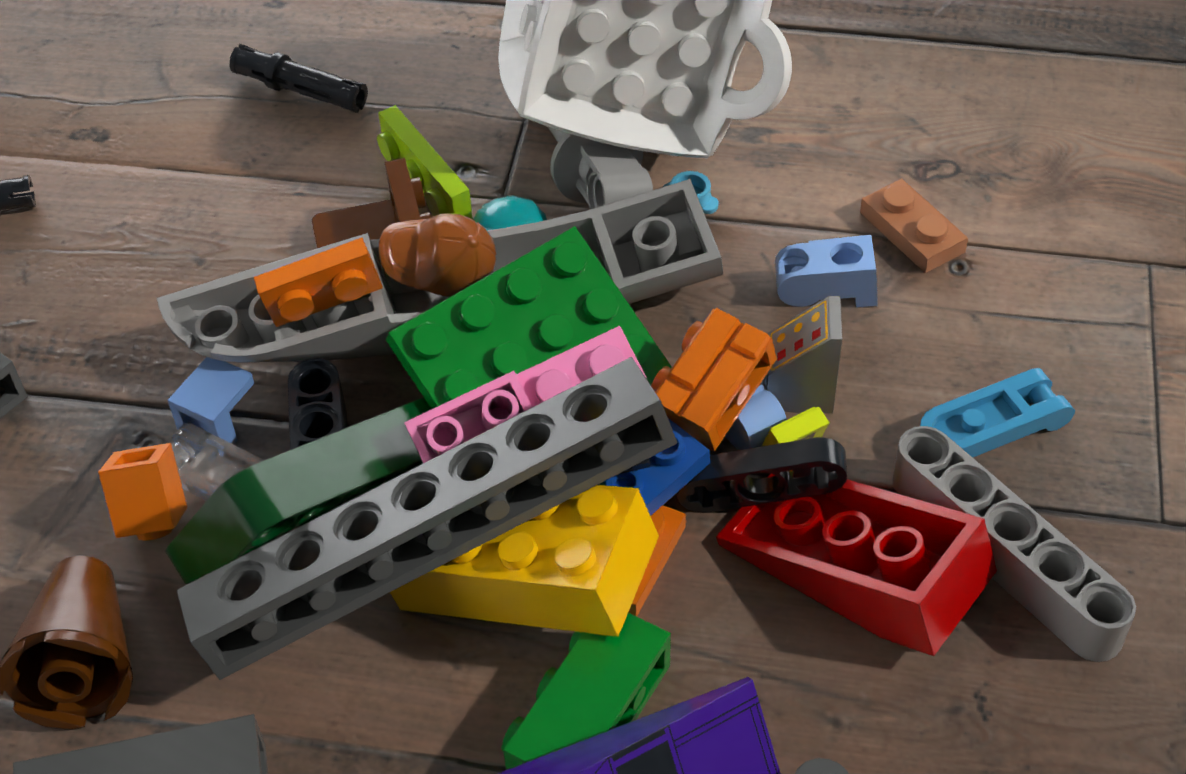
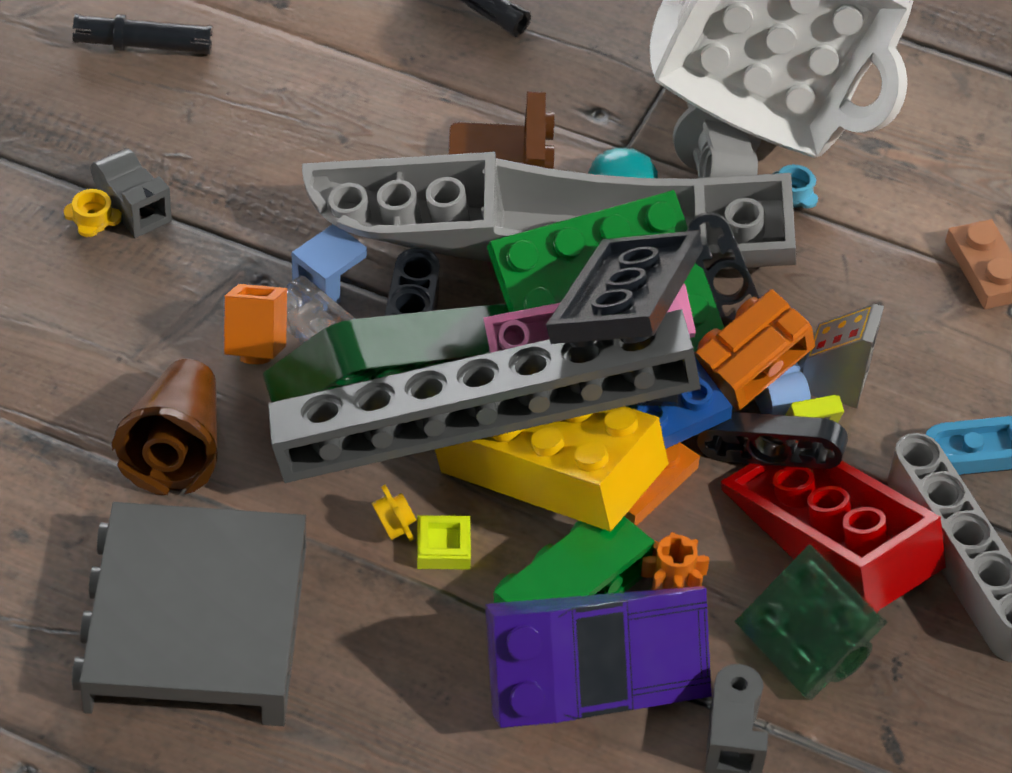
camera: 10 degrees right, 0 degrees up
(318, 282) = (442, 184): orange plate -> none
(359, 680) = (394, 514): none -> yellow plate
(425, 696) = (443, 542): none -> neon yellow tile
(437, 253) = (550, 184): dark orange piece -> none
(440, 184) = (572, 125): lime plate -> none
(558, 352) = (625, 289): none -> black plate
(646, 268) = (725, 242): none -> black beam
(700, 654) = (675, 563): none -> orange gear
(827, 269) = (895, 283): light blue leg -> none
(877, 682) = (812, 623): none -> clear green plate

